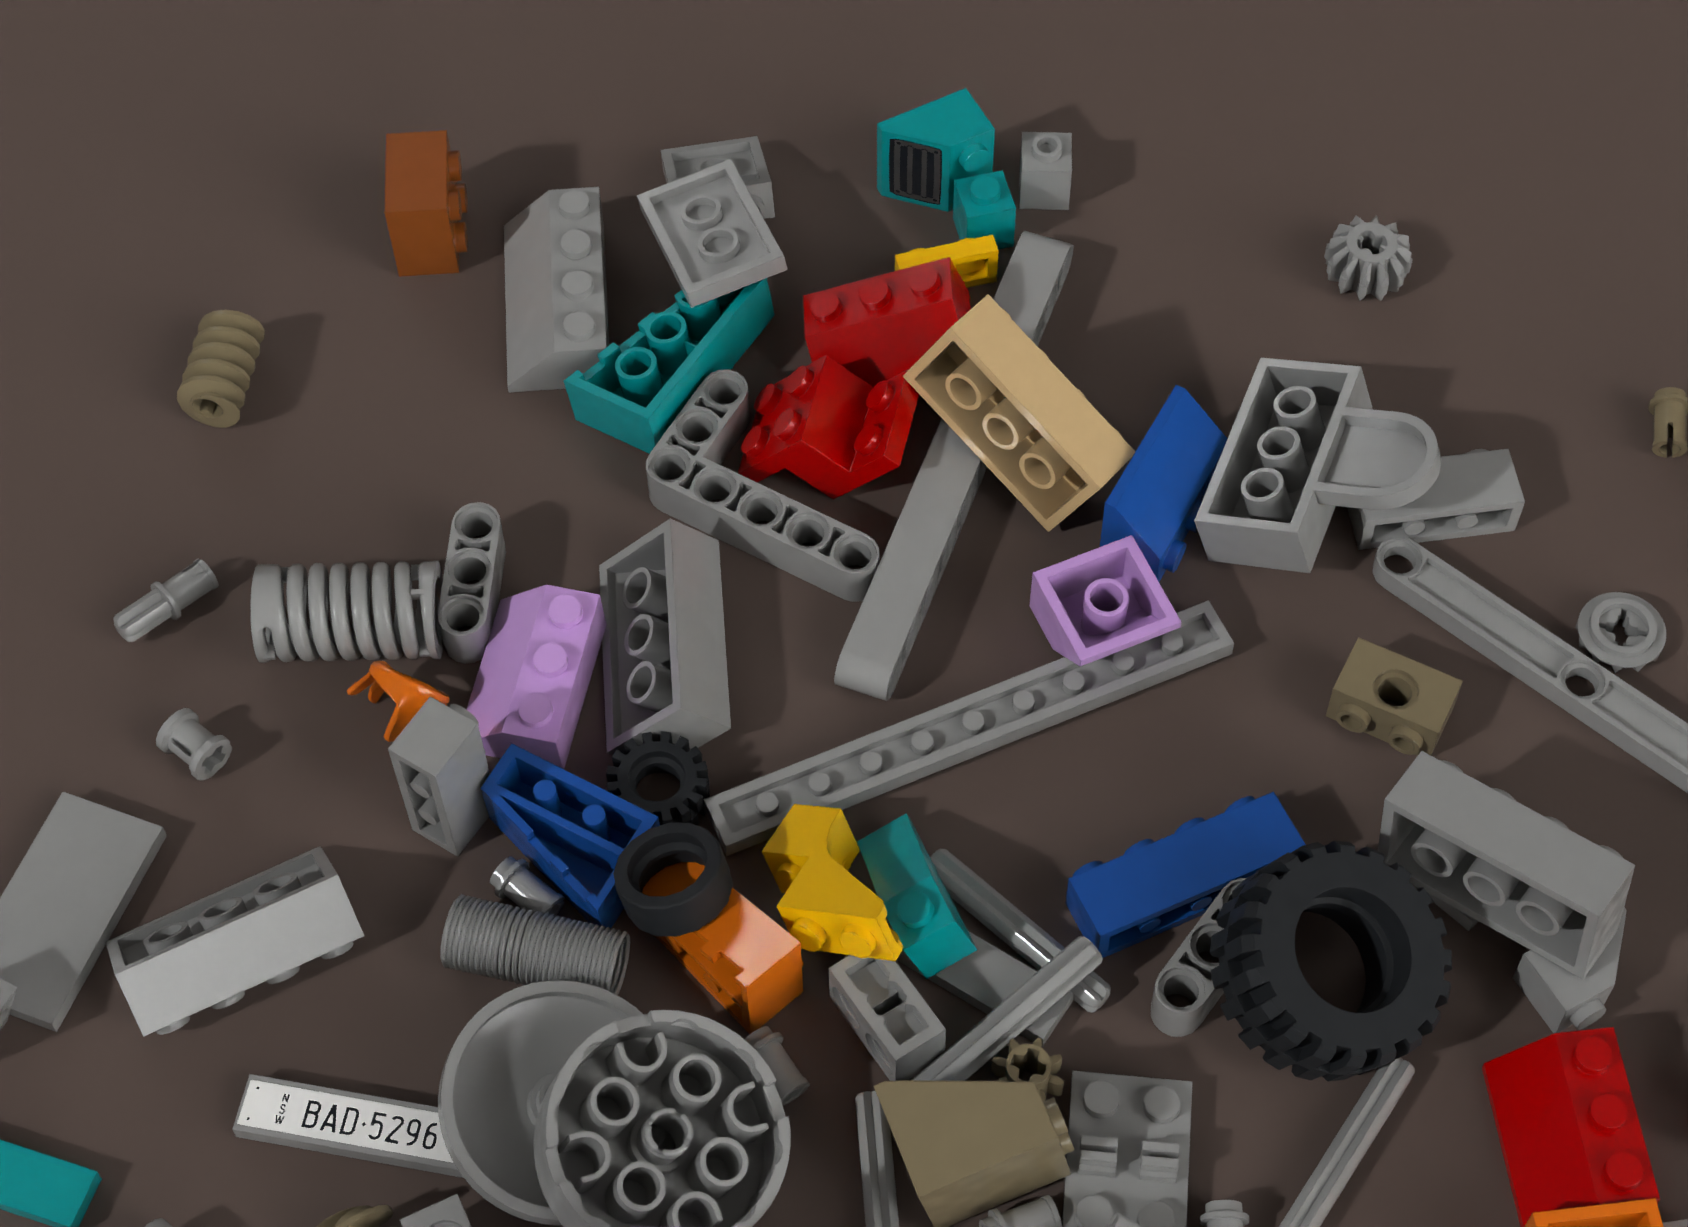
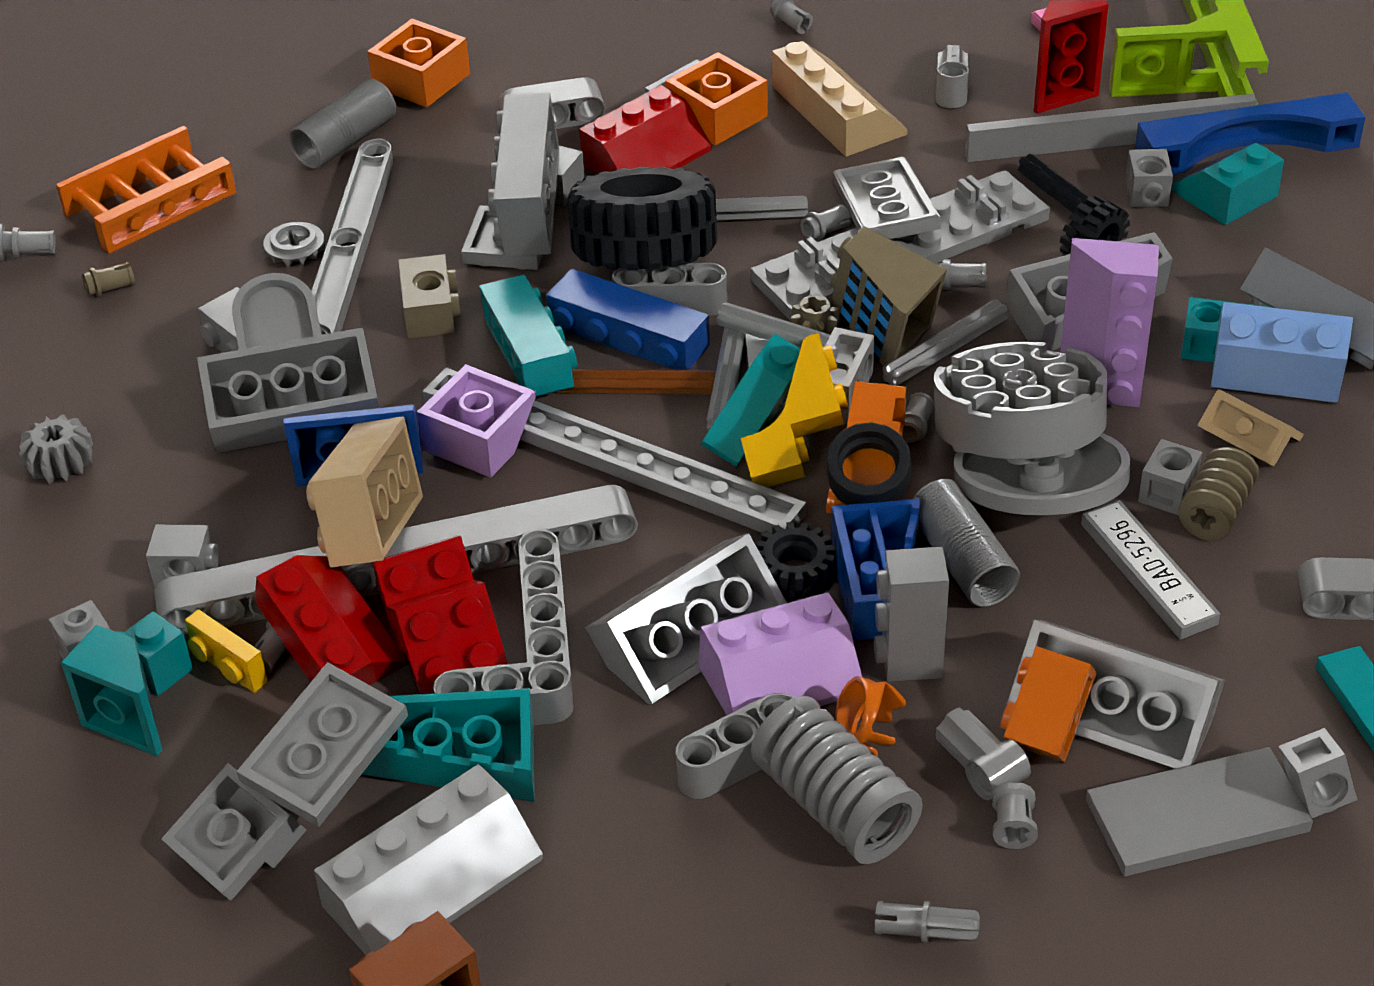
camera: 125 degrees left, 15 degrees down
(258, 840) = (1048, 703): none -> orange brick
(264, 769) = (981, 753): none -> light grey piece
(1079, 827) = (641, 381): none -> dark orange axle
(1111, 289) = (180, 551): none -> light grey brick
(1224, 741) = (528, 335): none -> teal brick

